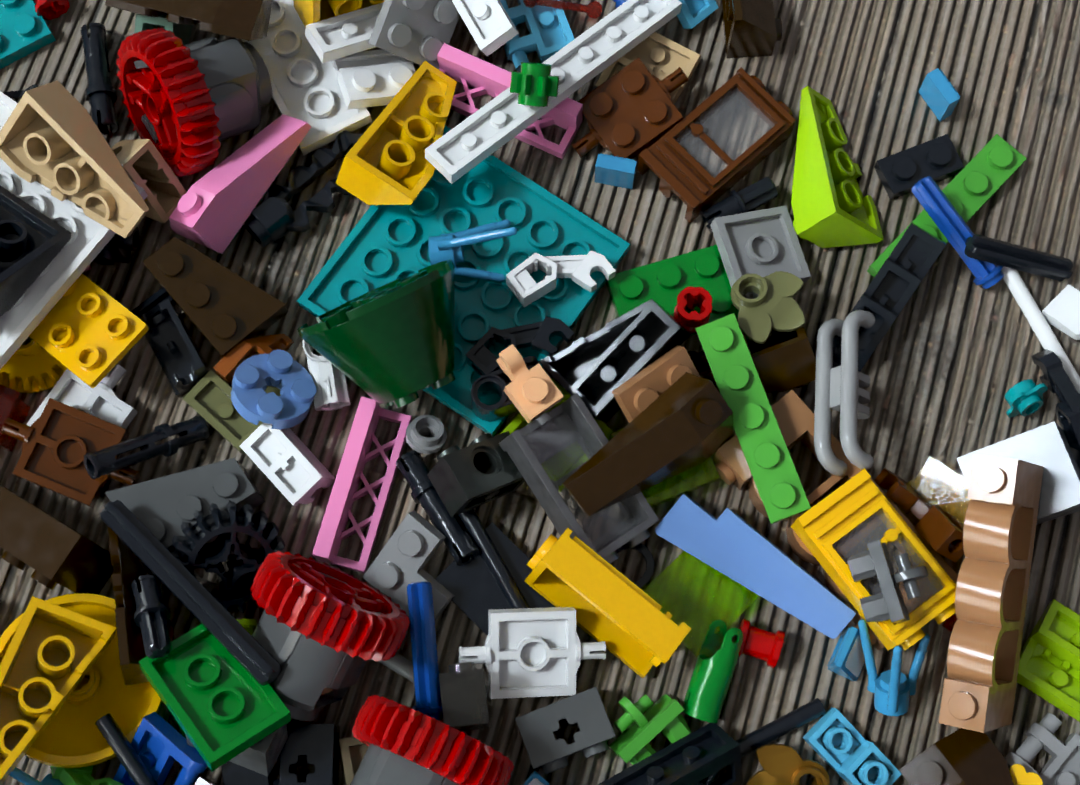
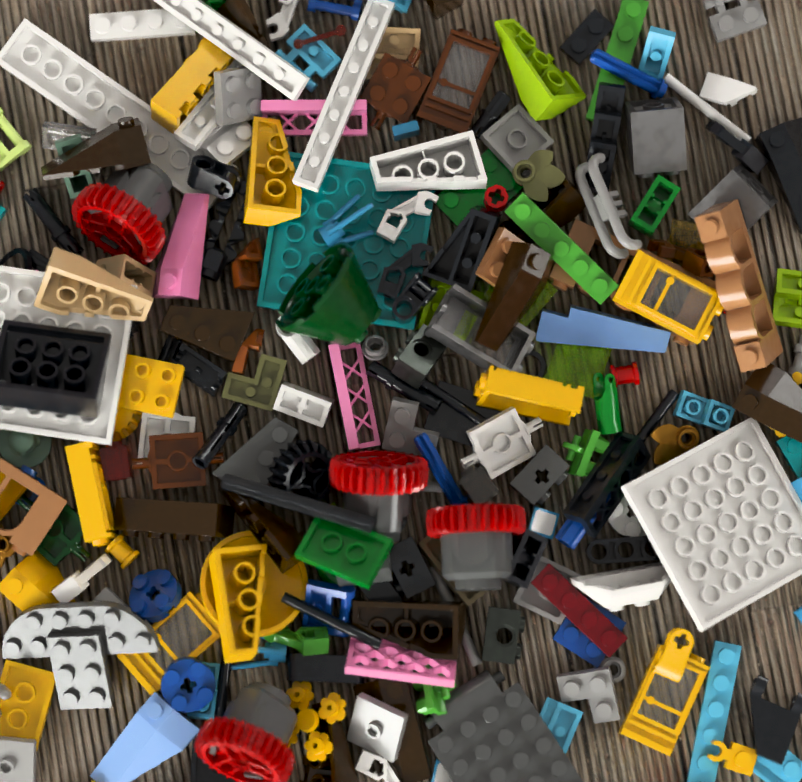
camera: 25 degrees left, 10 degrees up
(152, 616) = (287, 527): black axle -> none
(274, 370) = (275, 353): medium blue plate -> none
(310, 247) = (245, 267): none -> dark orange slope
(328, 105) = (211, 178): none -> black piece
(530, 389) = (427, 295): light nougat plate -> none
(534, 84) = (337, 108): green gear -> none
(624, 222) = (432, 165): none -> white wedge
(848, 655) = (677, 356): dark azure slope -> none
(877, 563) = (670, 301): dark grey hips -> none
(892, 687) = (709, 363): dark azure plant -> none
(912, 425) = (654, 206): none -> green brick
(957, 336) = (656, 136): none -> flat silver slope
(1014, 215) = (656, 52): none -> medium azure slope
(1018, 257) = (671, 71): black axle -> none
(1025, 398) = (712, 156): teal plate -> none

